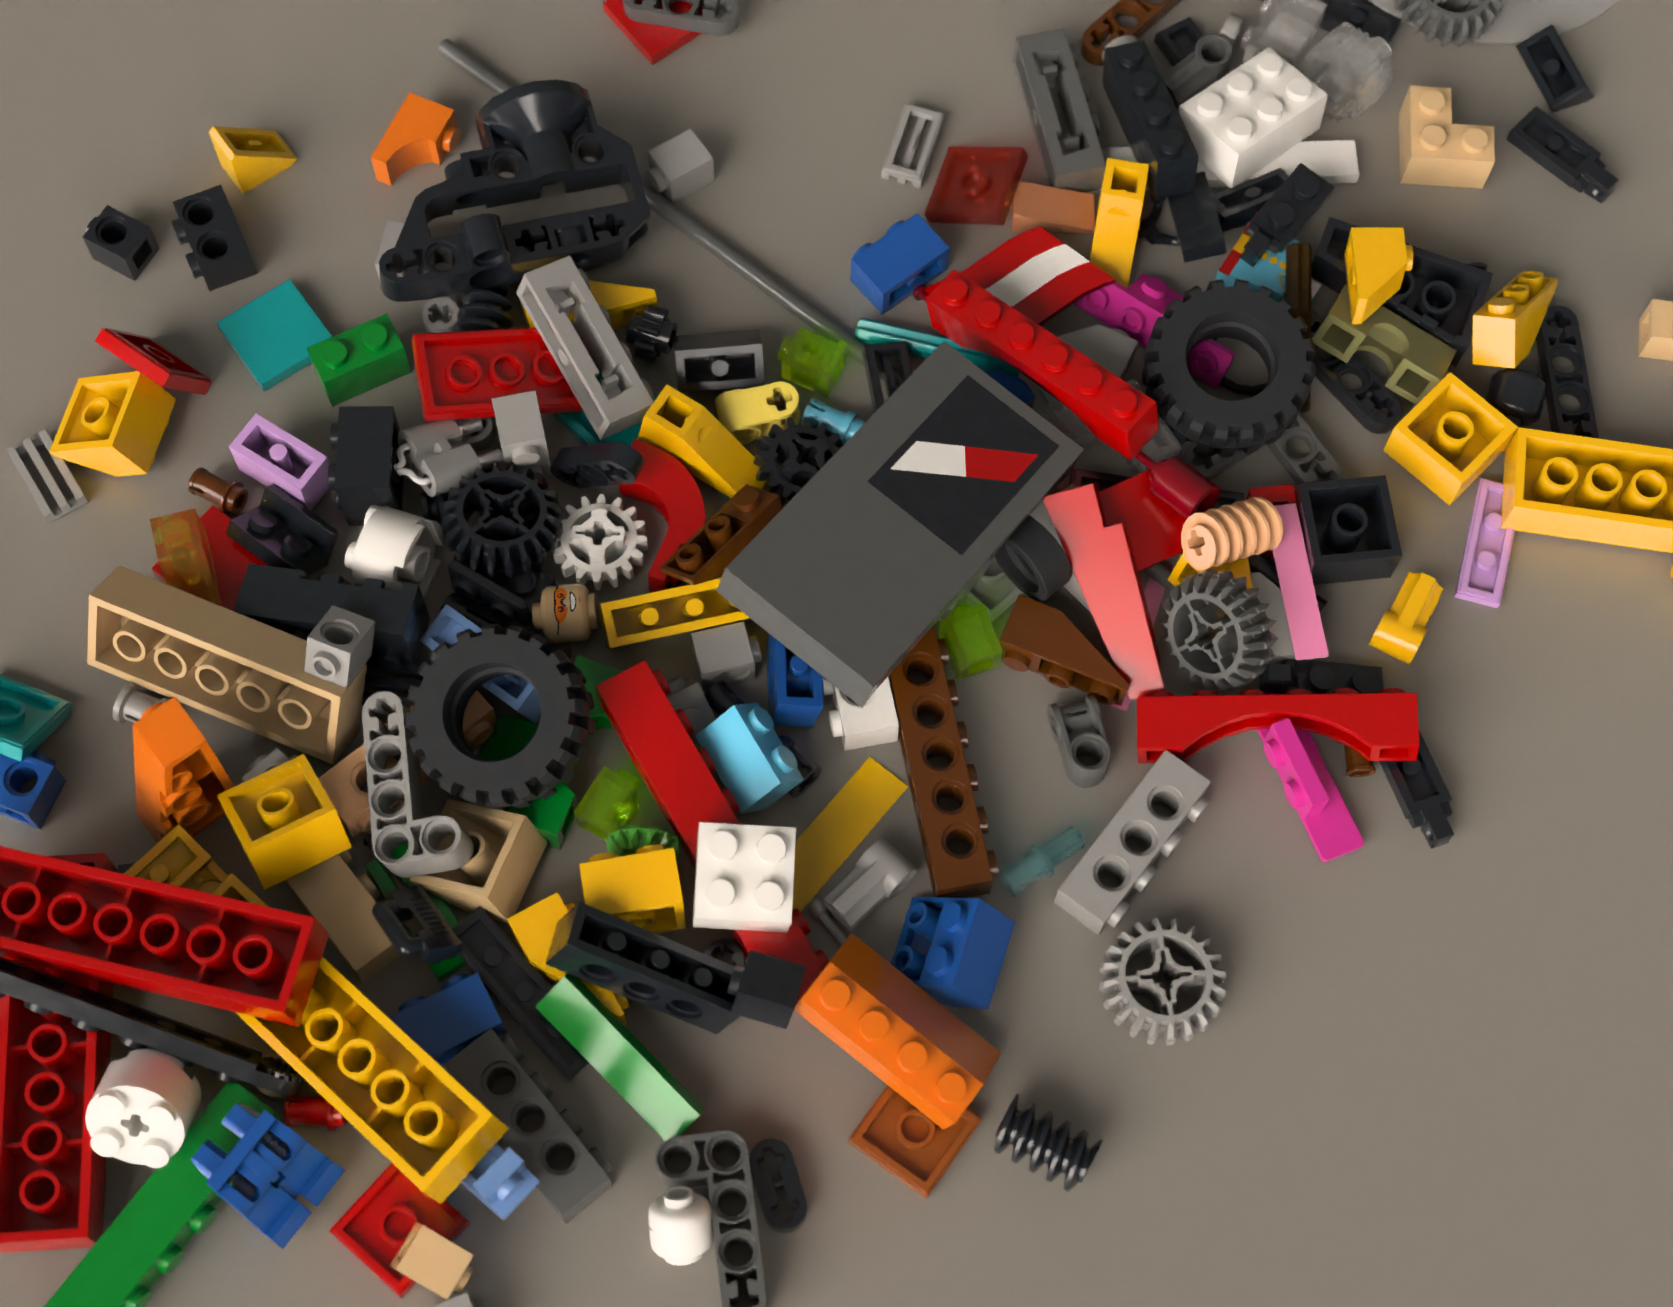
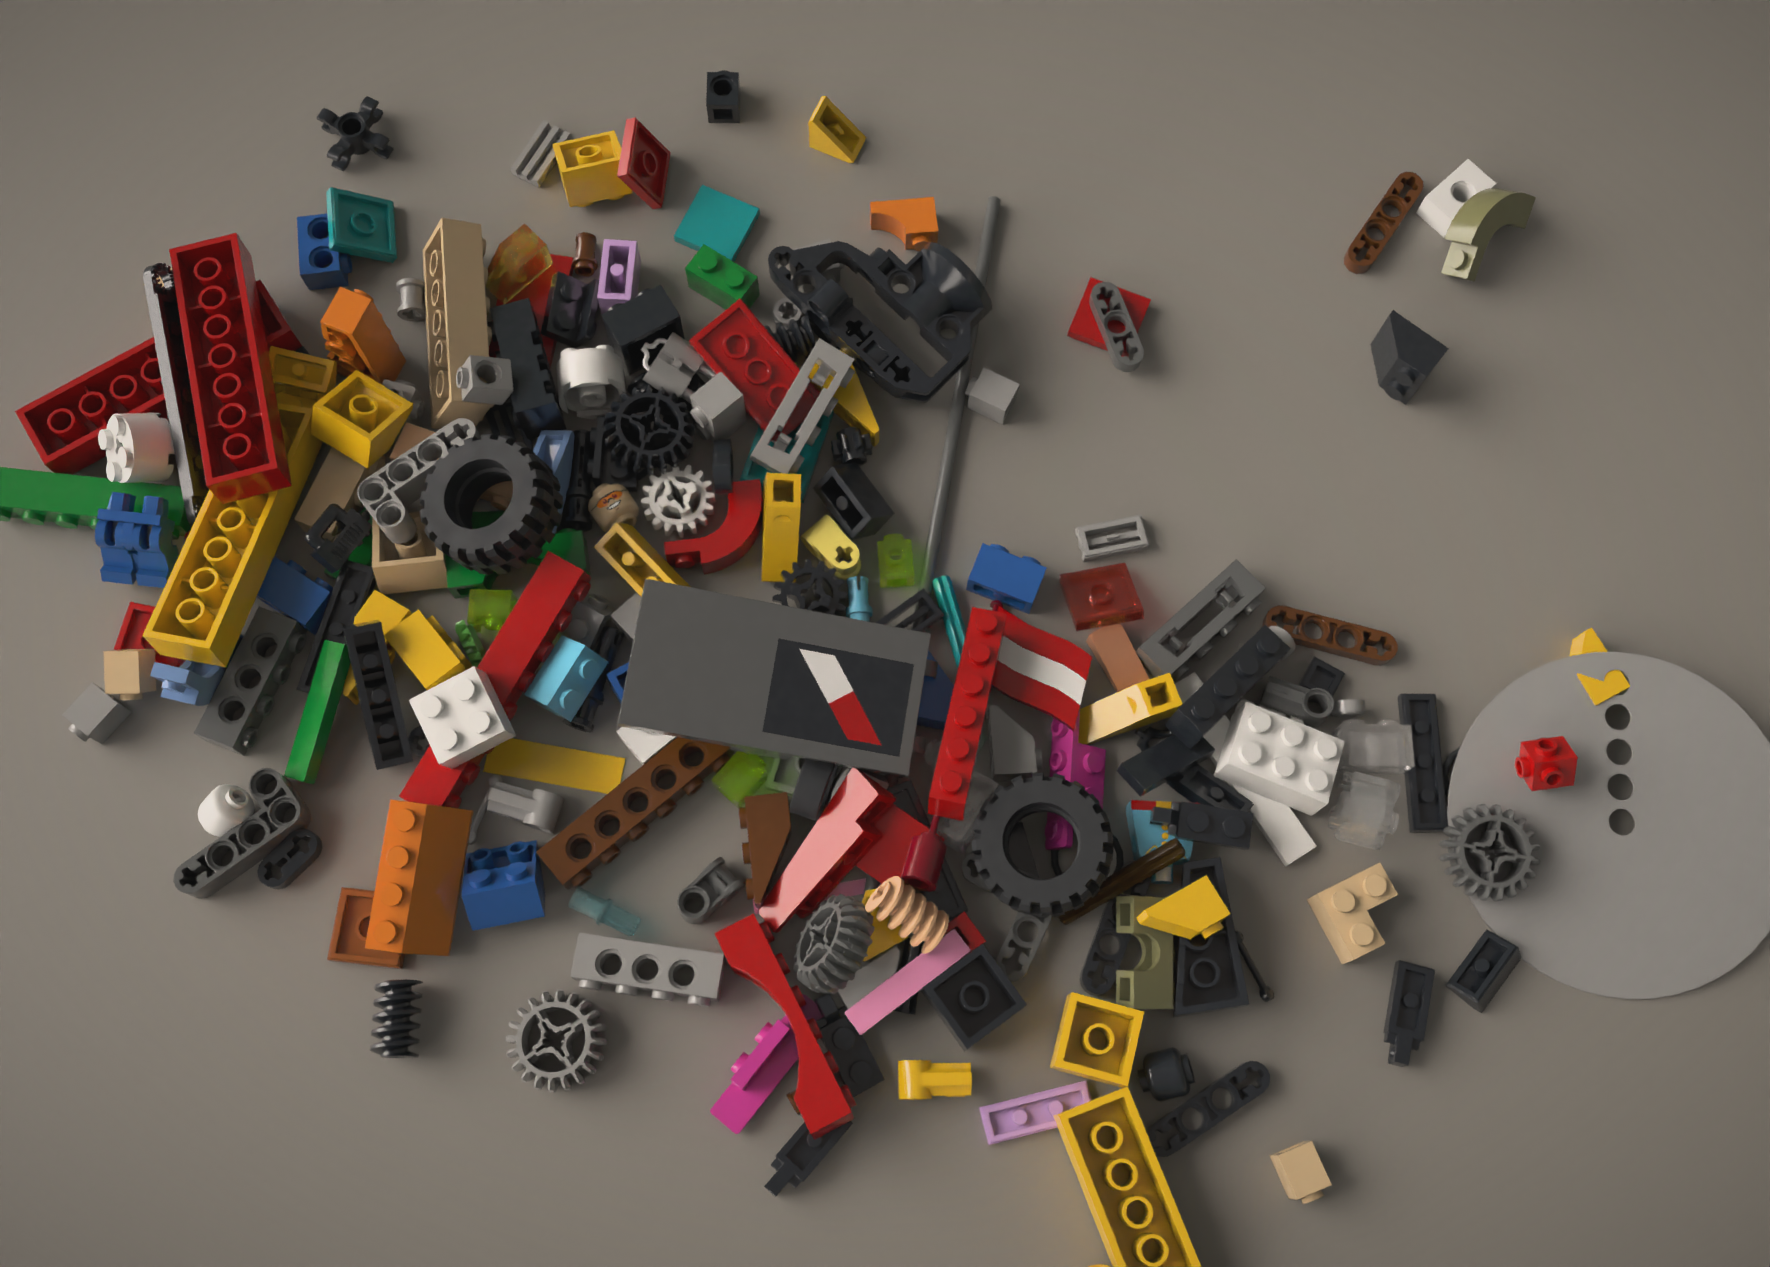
camera: 60 degrees right, 5 degrees up
(216, 237) = (766, 151): black brick -> none
(723, 536) = (712, 573): reddish brown slope -> none
(766, 989) = (396, 774): black brick -> none
(1511, 320) = (1226, 1039): yellow slope -> none

